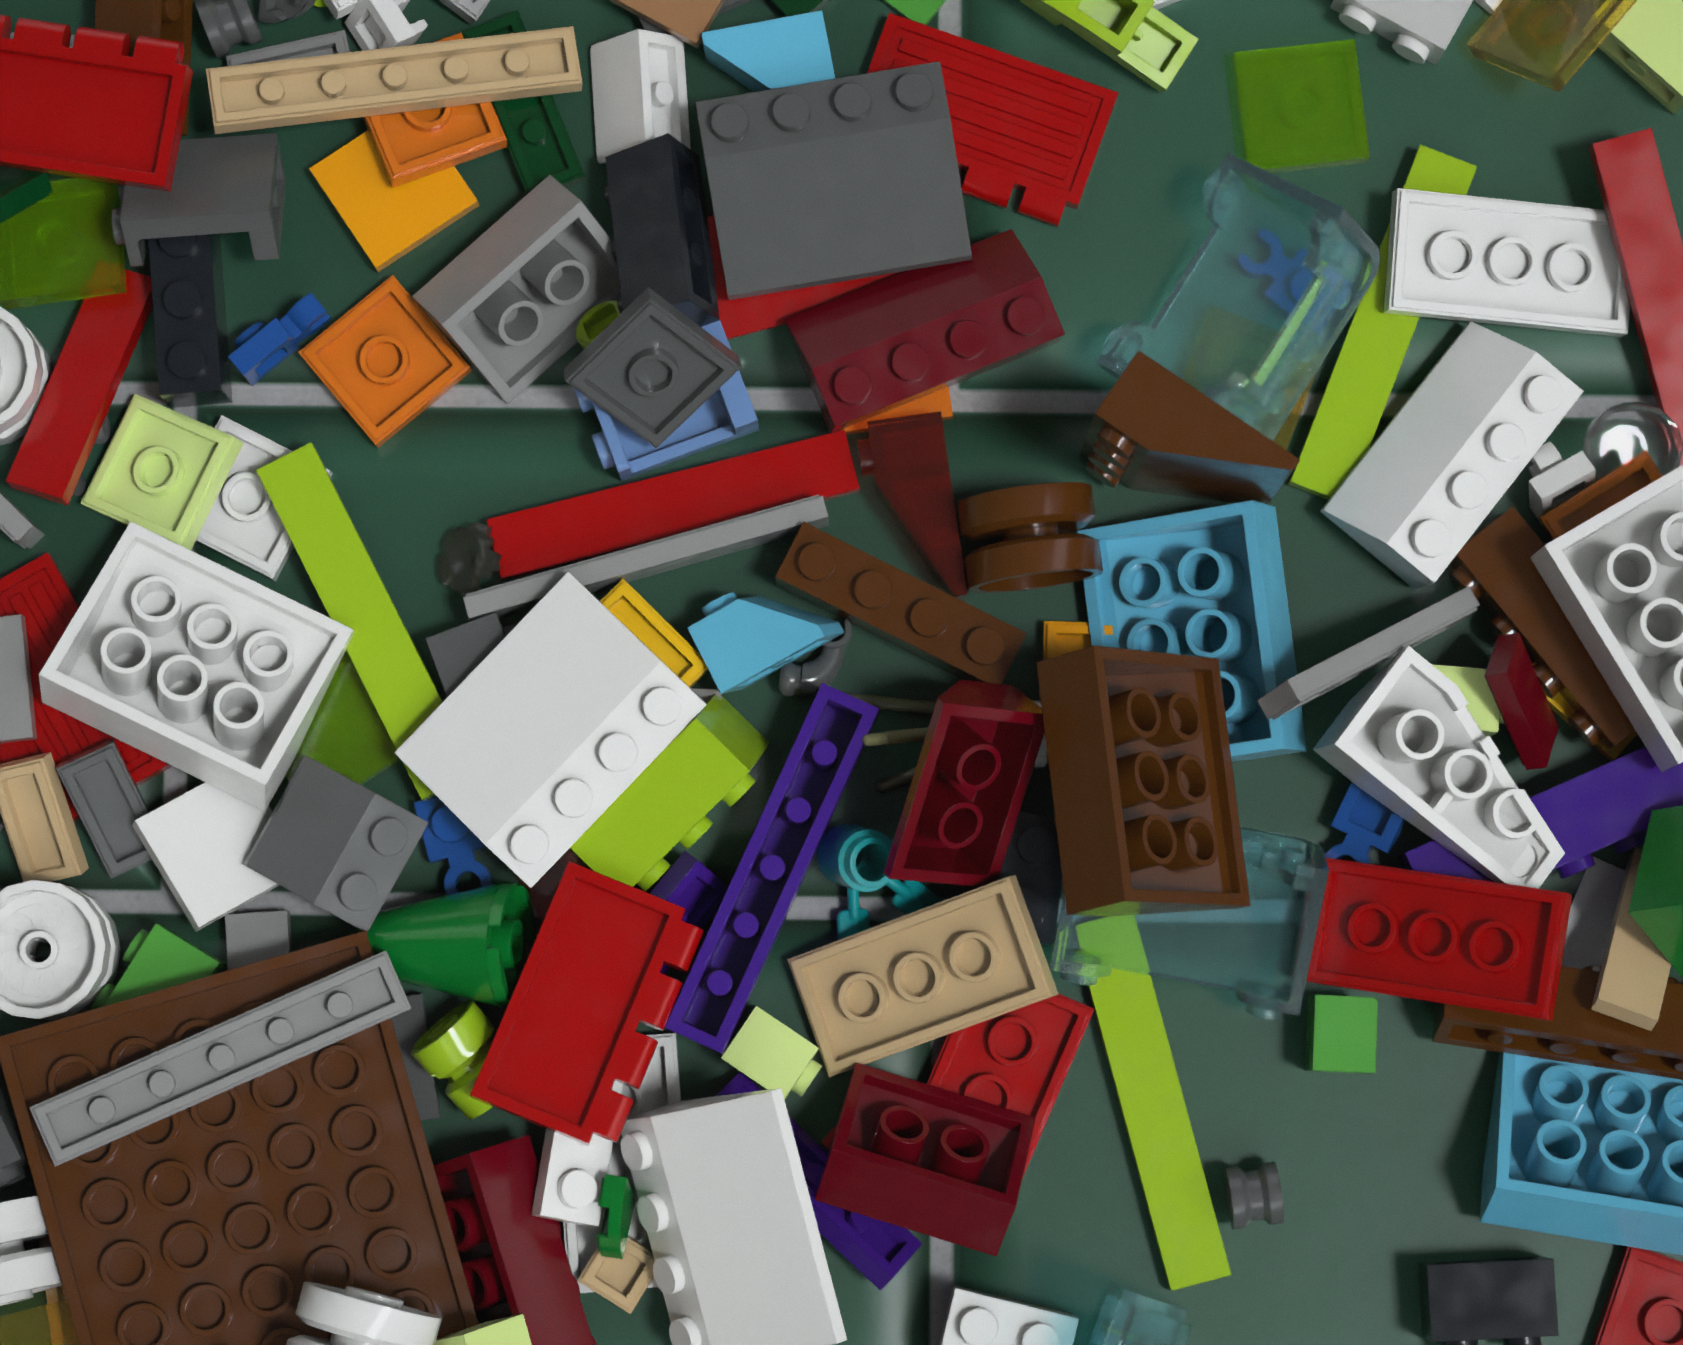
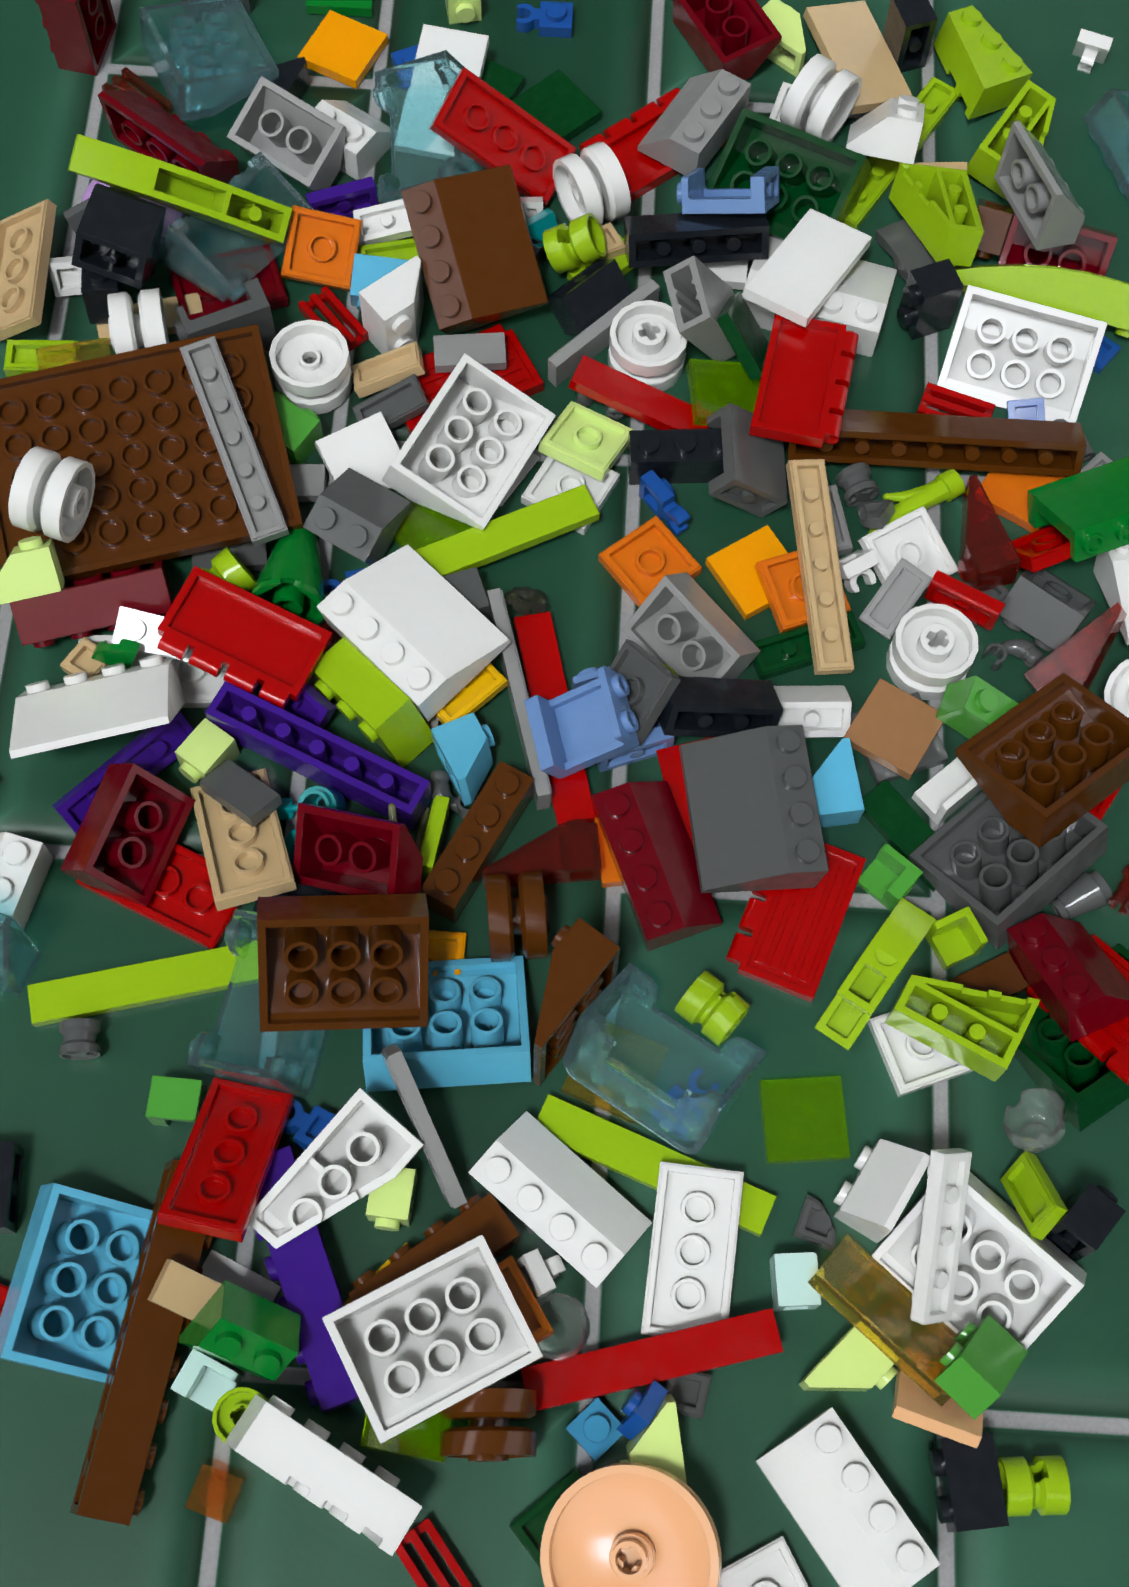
camera: 90 degrees right, 15 degrees down
(708, 447) = (583, 724): none -> medium blue panel
(846, 987) = (240, 792): none -> dark grey tile
(895, 677) = (434, 834): none -> lime tile
(1152, 234) = (712, 1008): none -> lime wheel
(1453, 91) = (815, 1225): none -> dark grey tile
(1521, 701) = (385, 1232): dark red tile -> none
(1545, 118) = (790, 1281): none -> light aqua panel

